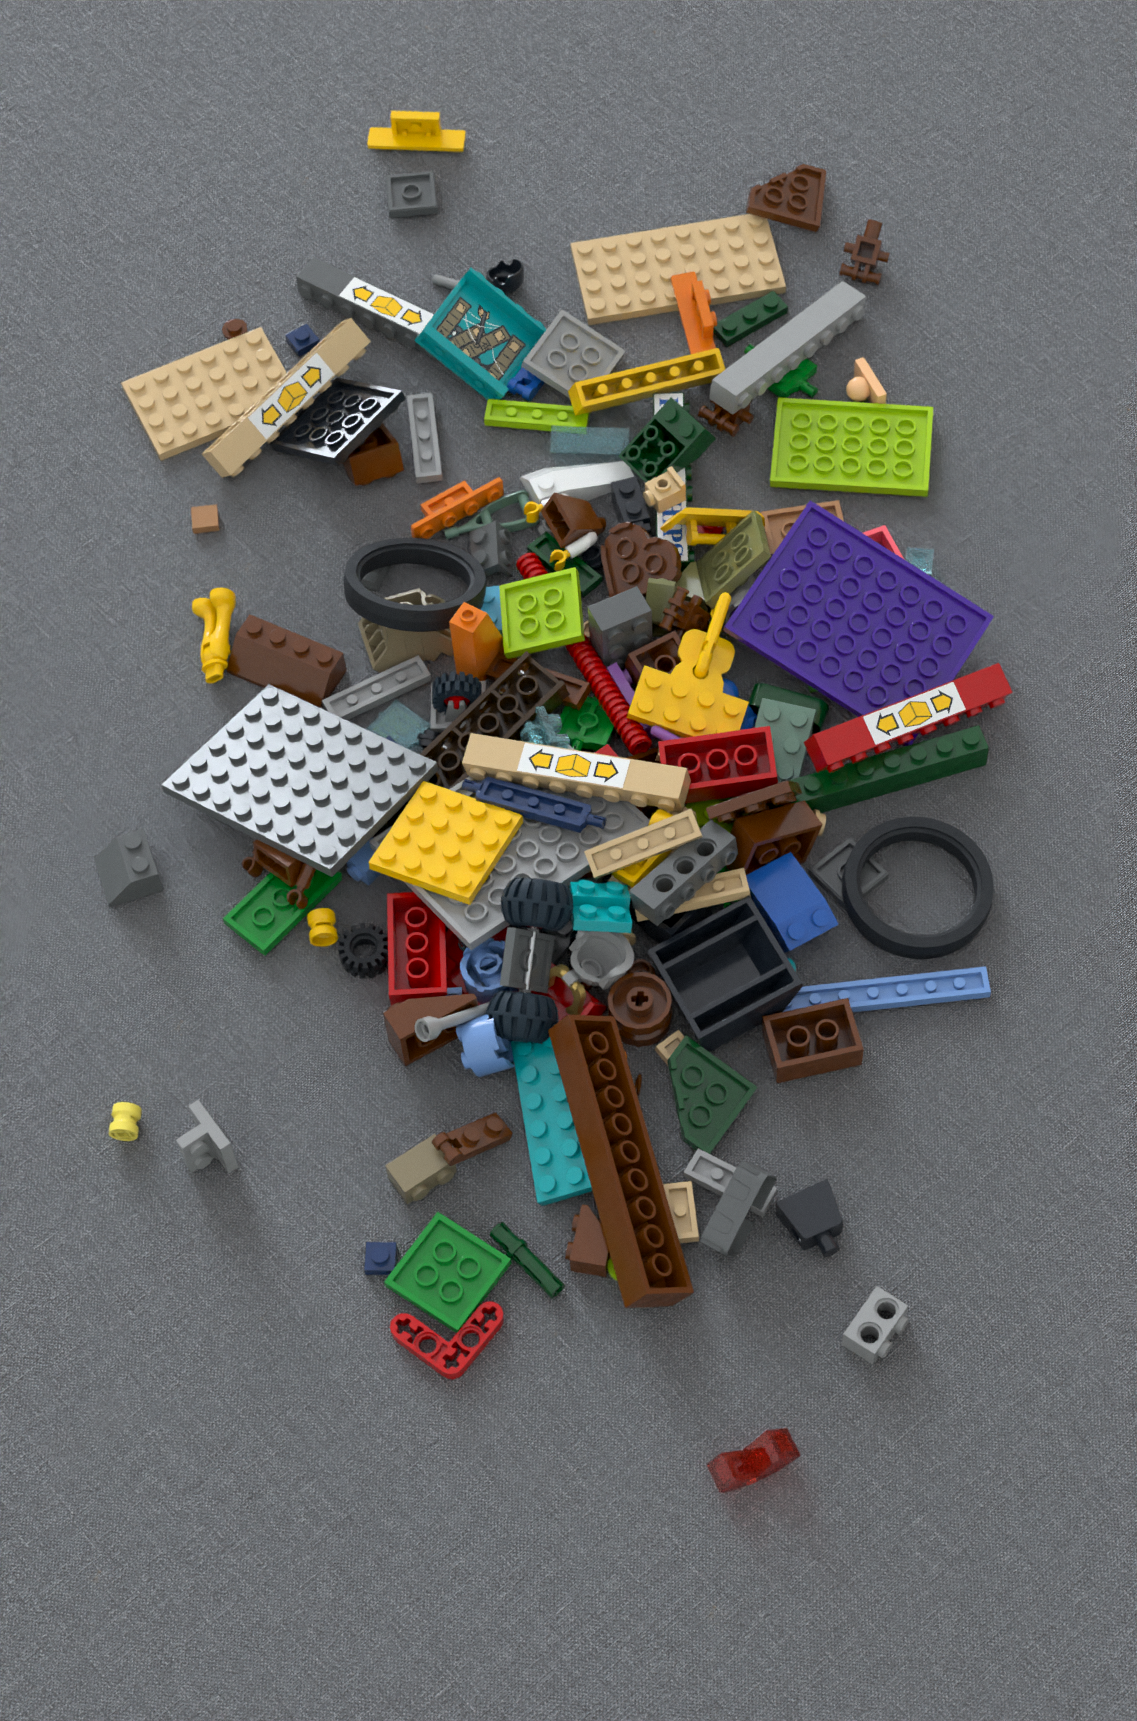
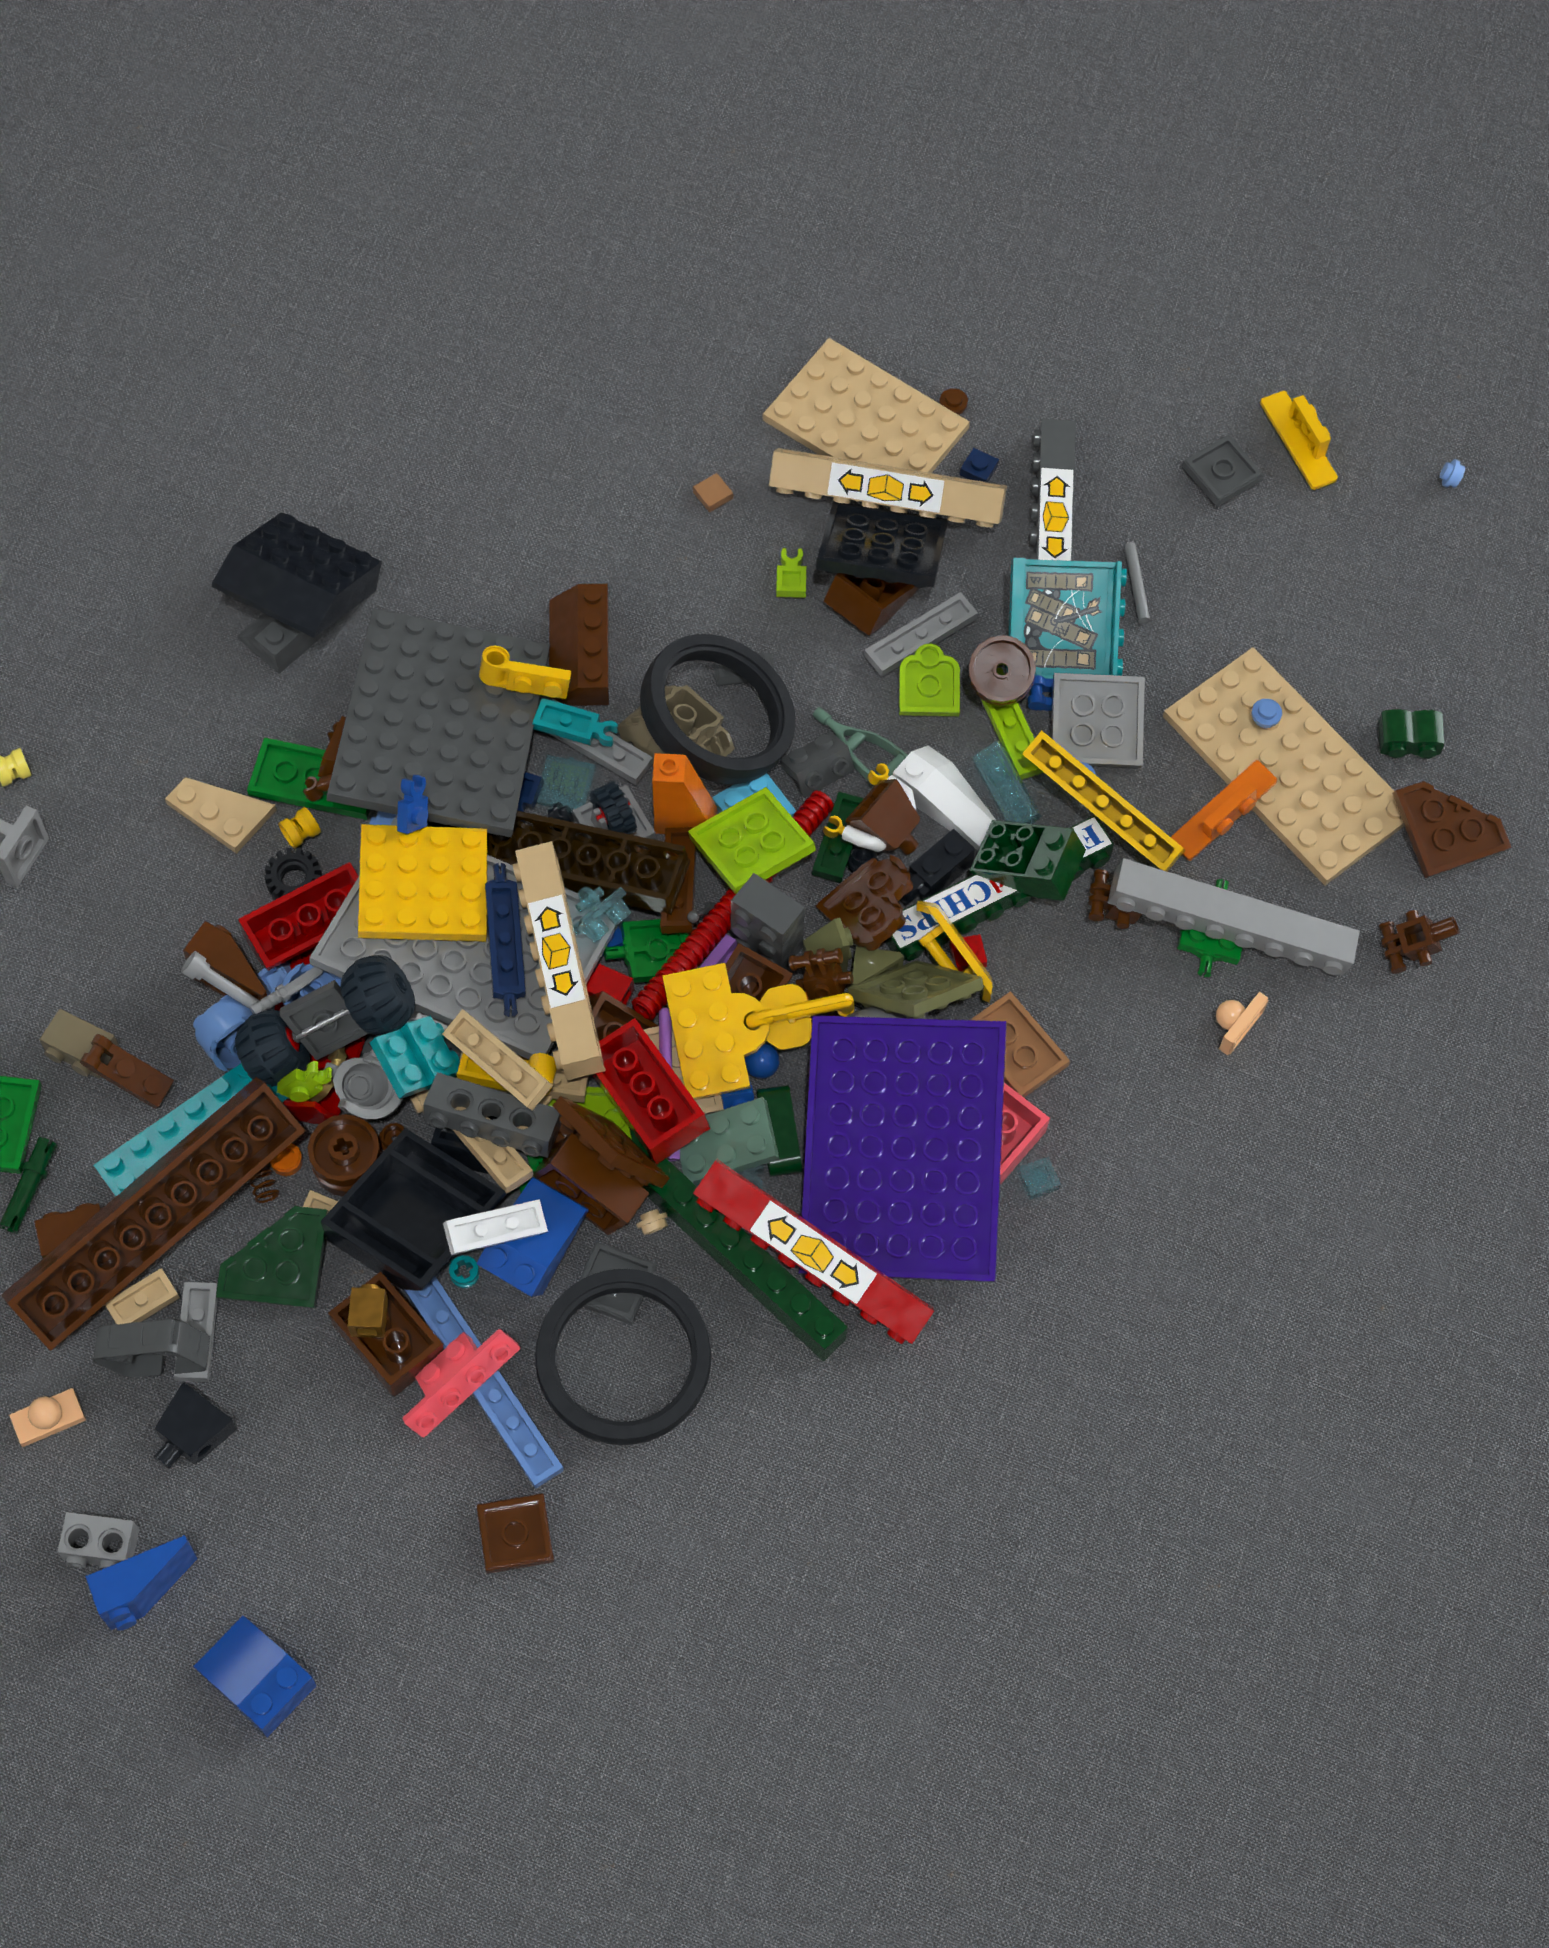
camera: 55 degrees right, 5 degrees up
(95, 823) = (297, 574): none -> black slope
(215, 641) = (562, 576): yellow piece -> none
(266, 983) = (220, 812): none -> tan wing
(285, 714) = (522, 677): none -> yellow plate
(317, 499) = (791, 576): none -> lime plate
(357, 691) = (572, 723): none -> teal plate
(386, 814) = (414, 807): none -> blue plate
(454, 505) = (850, 699): orange bracket -> none
(471, 449) = (929, 683): none -> lime plate
(481, 983) = (284, 993): none -> light grey piece
(502, 390) = (1007, 688): none -> wheel
(506, 276) = (1167, 607): black hair -> none
(507, 64) = (1452, 473): none -> light blue plate
(571, 1001) = (304, 1085): none -> lime plate
(584, 676) = (693, 916): none -> dark grey hinge
(634, 255) = (1266, 713): none -> medium blue plate
(665, 491) = (967, 891): tan brick -> none
(701, 184) = (1411, 733): none -> dark green brick
(743, 1326) = (47, 1417): none -> light nougat tile
(750, 318) = (1264, 866): dark green plate -> none
(779, 911) = (495, 1227): none -> white plate
(797, 1033) = (367, 1311): none -> pearl gold brick
(852, 447) = (1152, 1044): lime plate -> none
(873, 1003) = (455, 1376): none -> coral bracket
(935, 1305) = (136, 1584): none -> blue slope
(1020, 1024) = (515, 1533): none -> reddish brown plate
(1046, 1253) = (255, 1675): none -> blue slope

